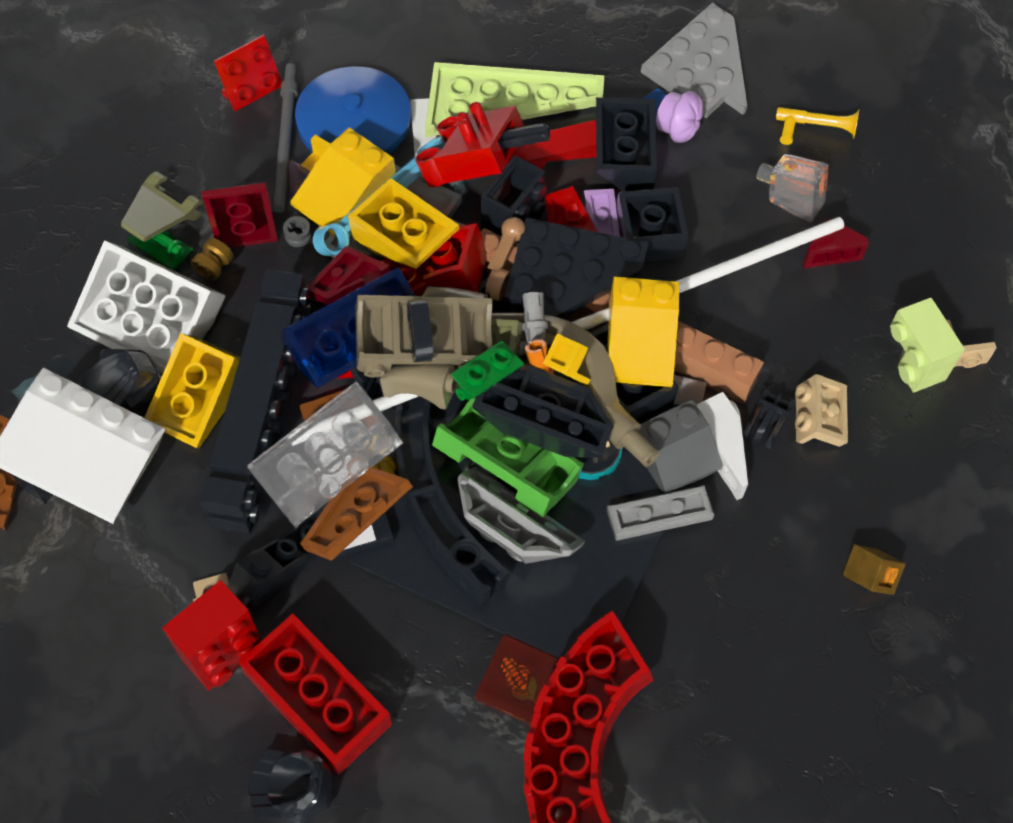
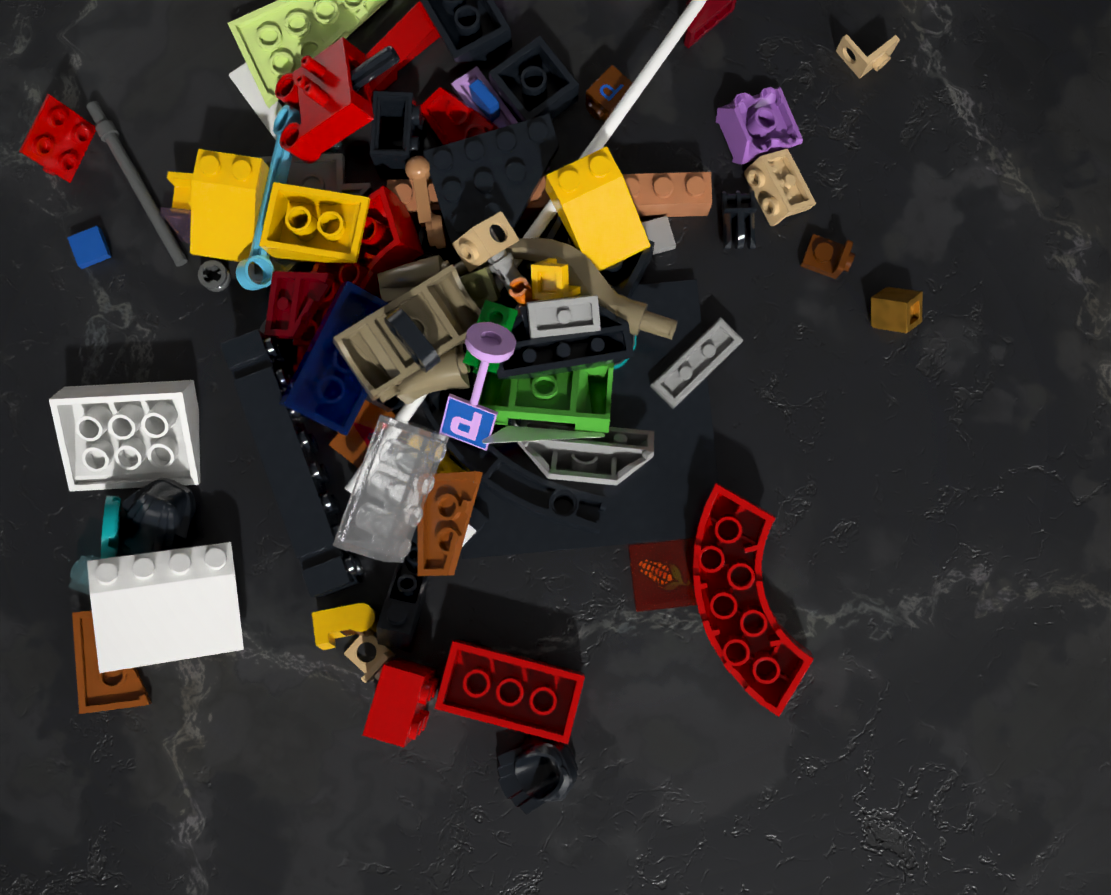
camera: 25 degrees left, 20 degrees up
(81, 360) = (110, 527): none -> teal tile
(155, 211) = (71, 336): olive flag -> none
(164, 249) = (95, 362): green hinge -> none
(193, 390) = (227, 485): yellow slope -> none
(208, 552) = (343, 622): none -> yellow leg
(212, 259) = (156, 351): pearl gold wheel -> none
(216, 161) = (89, 247): none -> blue tile
(241, 215) = (156, 297): dark red slope -> none
(356, 99) = (181, 111): blue dish -> none
(425, 431) = (468, 419): none -> lavender piece
(467, 473) = (521, 434): none -> sticker
(524, 300) = (478, 246): none -> tan bracket
(559, 385) = (563, 316): none -> light grey plate
(603, 212) = (485, 100): none -> blue tile
(684, 447) = (683, 293): dark grey slope -> none
(709, 256) = (606, 93): none -> reddish brown brick
(727, 432) = (708, 260): white slope -> none
(831, 353) = (758, 125): none -> medium lavender slope
(834, 492) = (827, 256): none -> reddish brown bracket
(927, 344) = (838, 72): yellowish green slope -> none

